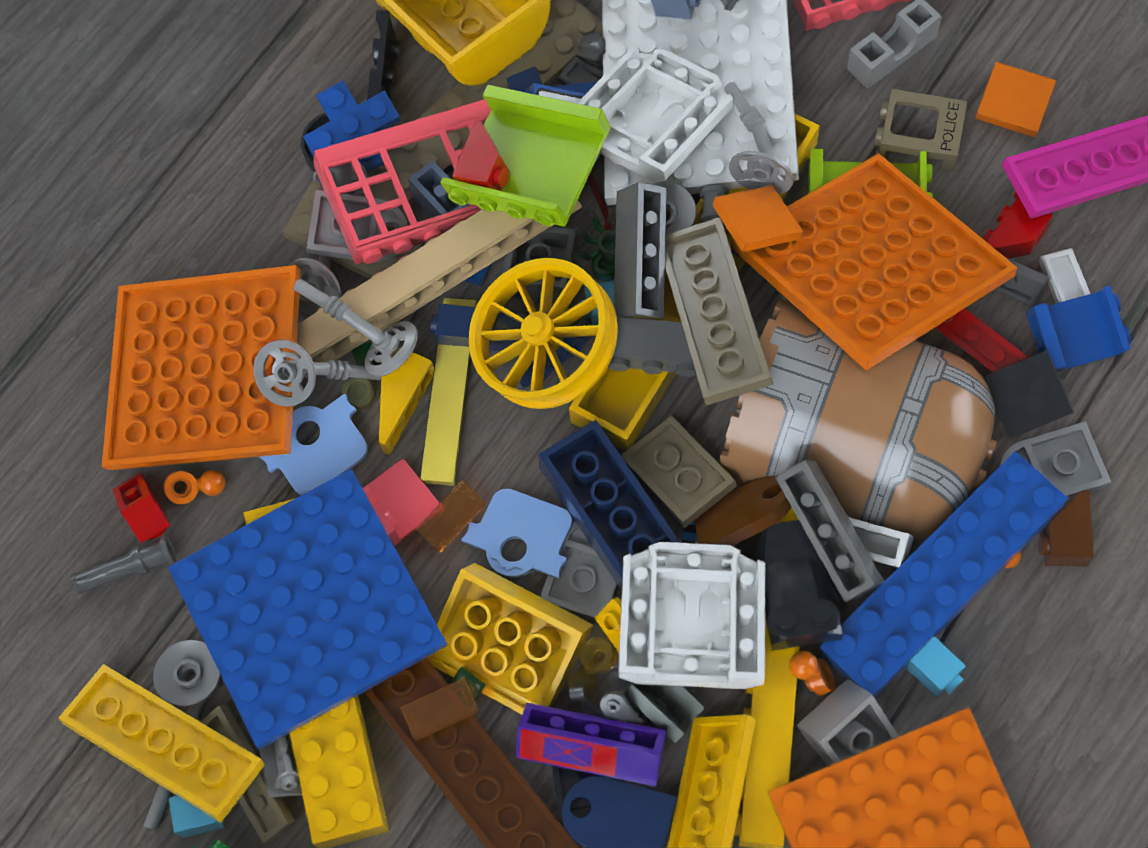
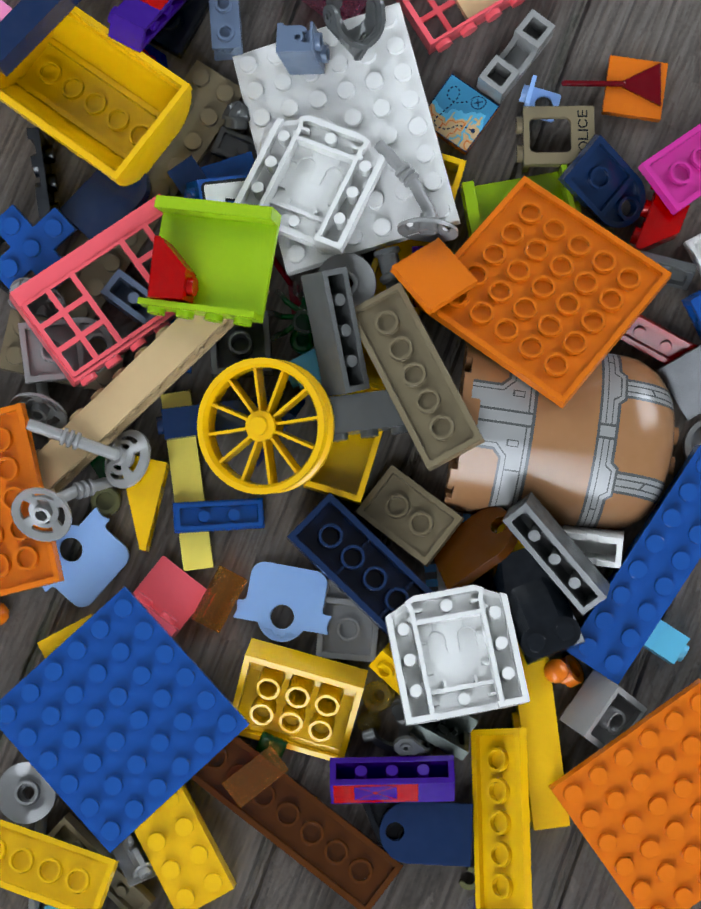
camera: 20 degrees left, 15 degrees up
(435, 95) = (104, 202): none -> dark blue tile
(472, 430) = (218, 515): none -> blue tile
(825, 90) = (460, 113): none -> tile
(901, 81) = (531, 94): none -> light blue bracket
(963, 178) = (603, 183): none -> dark blue tile
(1026, 95) = (644, 84): none -> dark red piece

